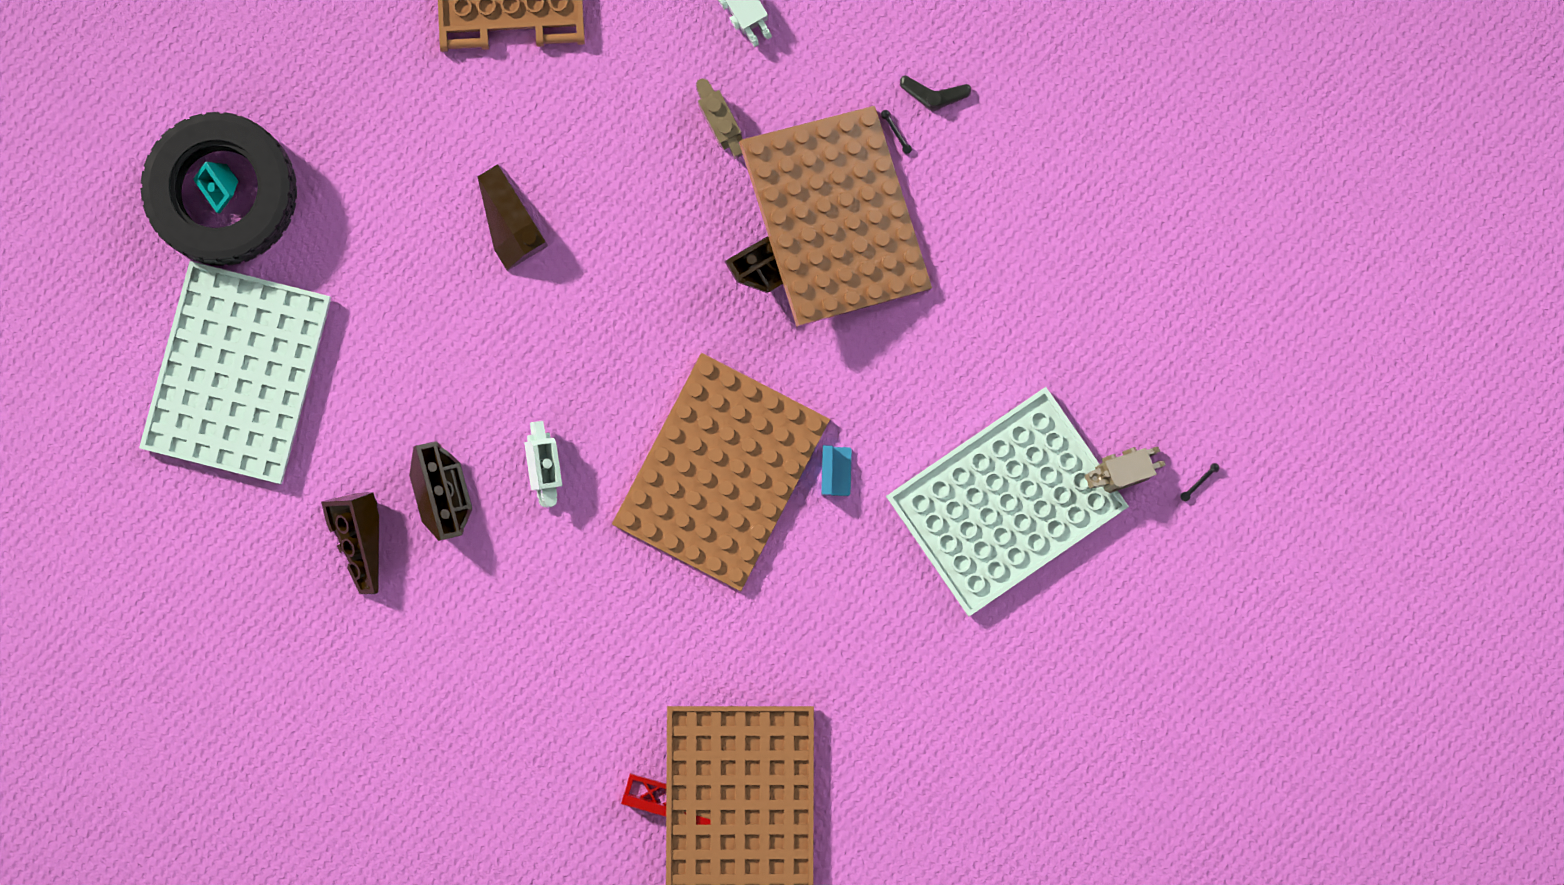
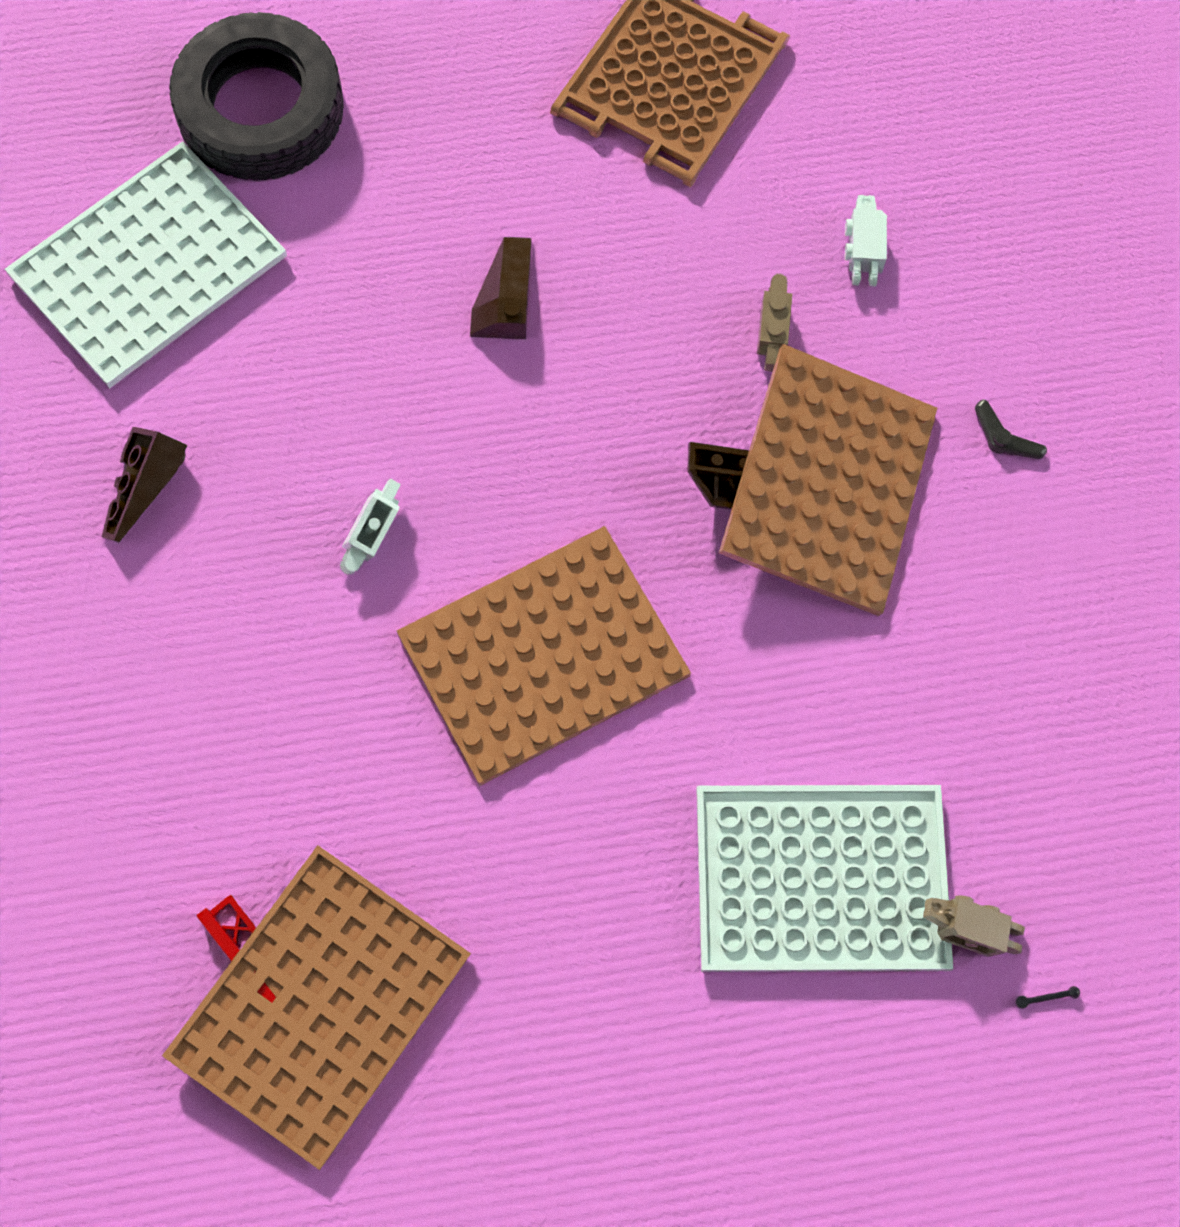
camera: 35 degrees right, 15 degrees down
(216, 184) = (258, 89): teal slope -> none
(439, 490) = (253, 485): dark brown wedge -> none
(836, 471) = (661, 728): dark azure panel -> none
(885, 114) = (943, 468): black hinge -> none

